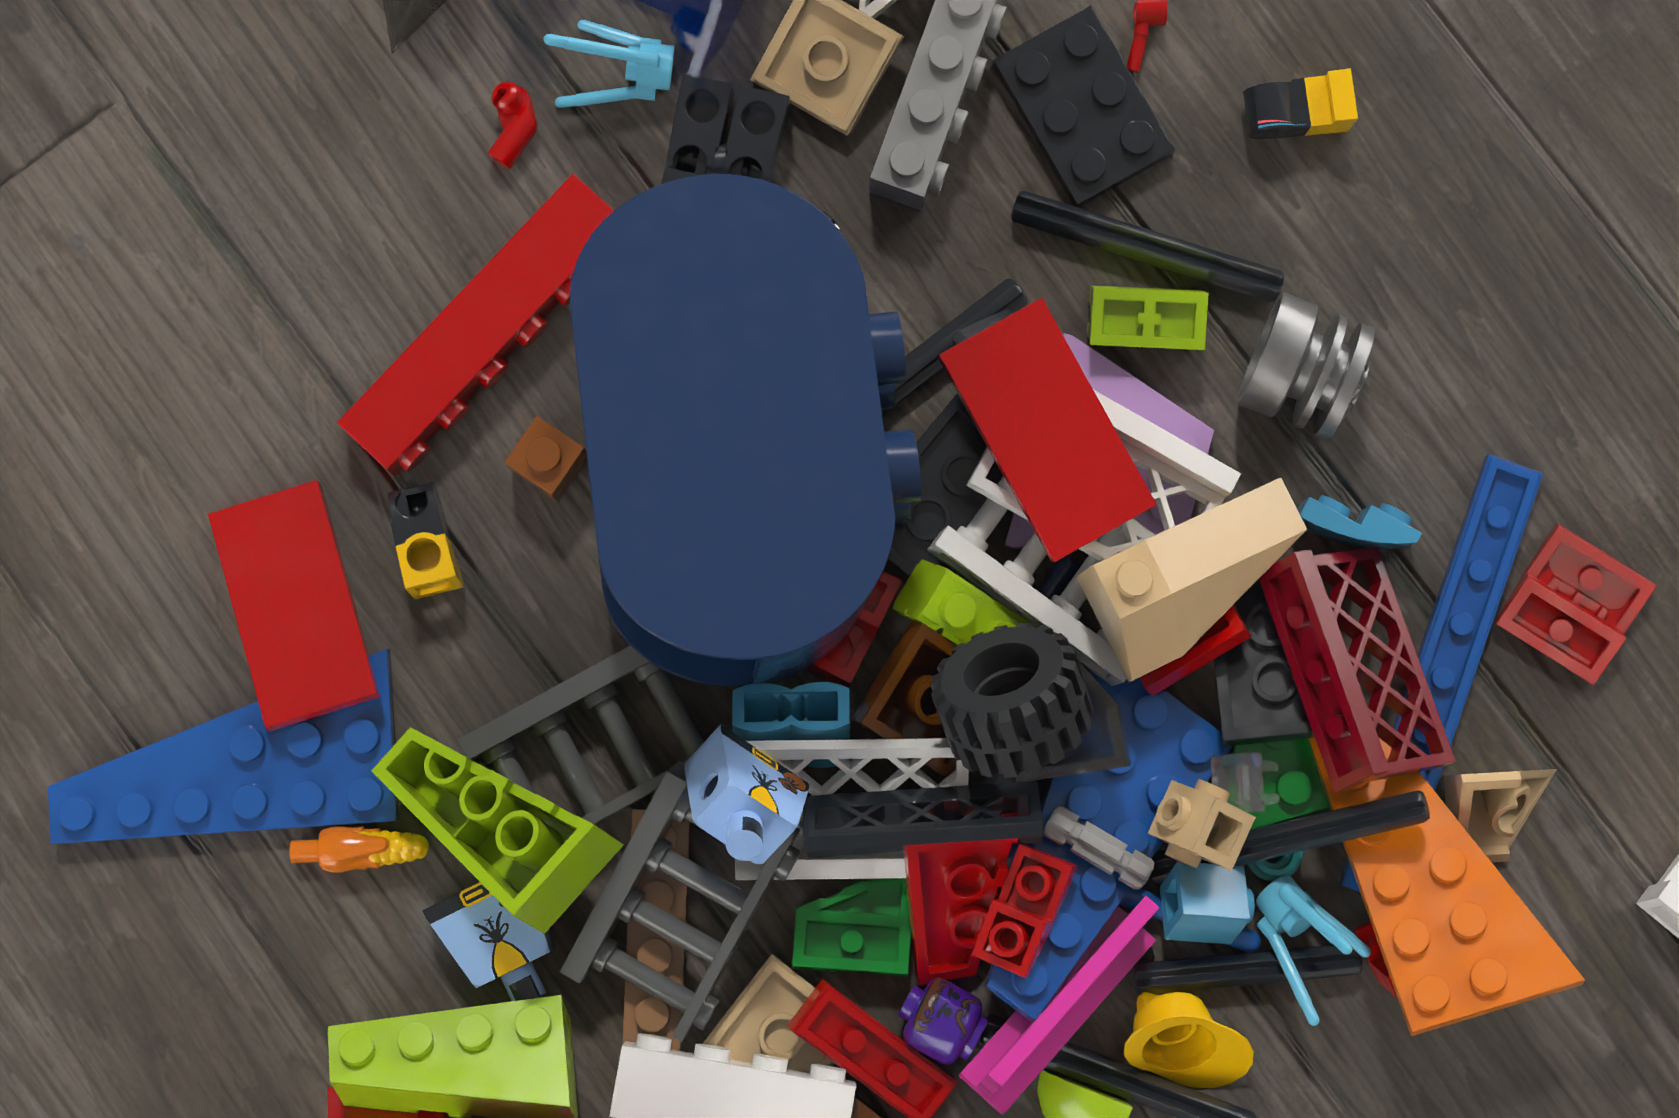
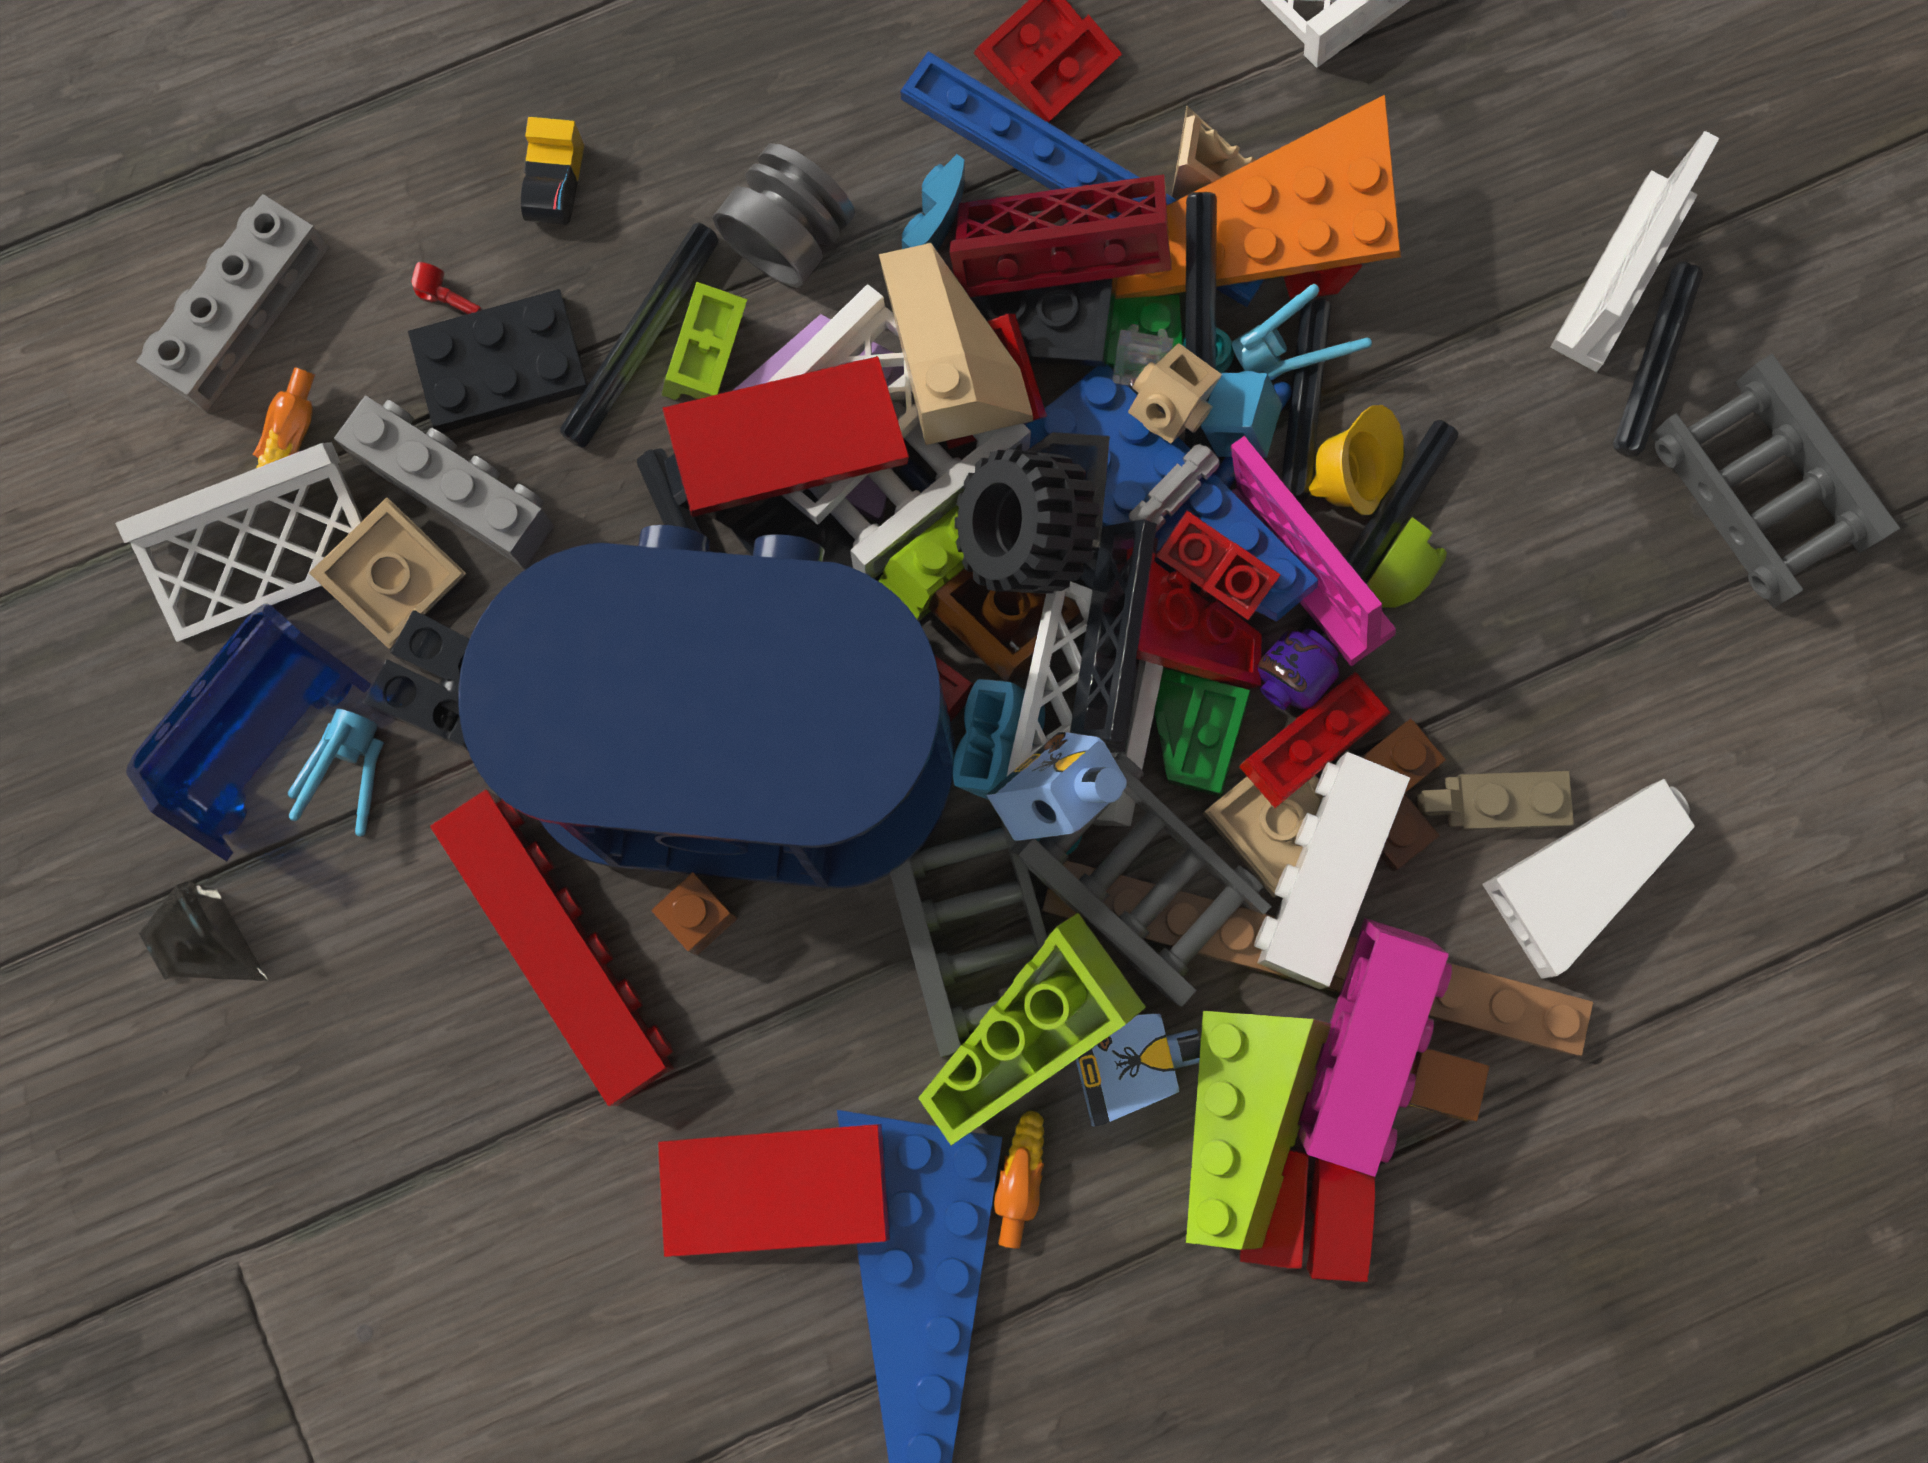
camera: 75 degrees left, 5 degrees down
(423, 542) = (743, 1050): leg -> none
(517, 121) = (367, 873): red arm -> none

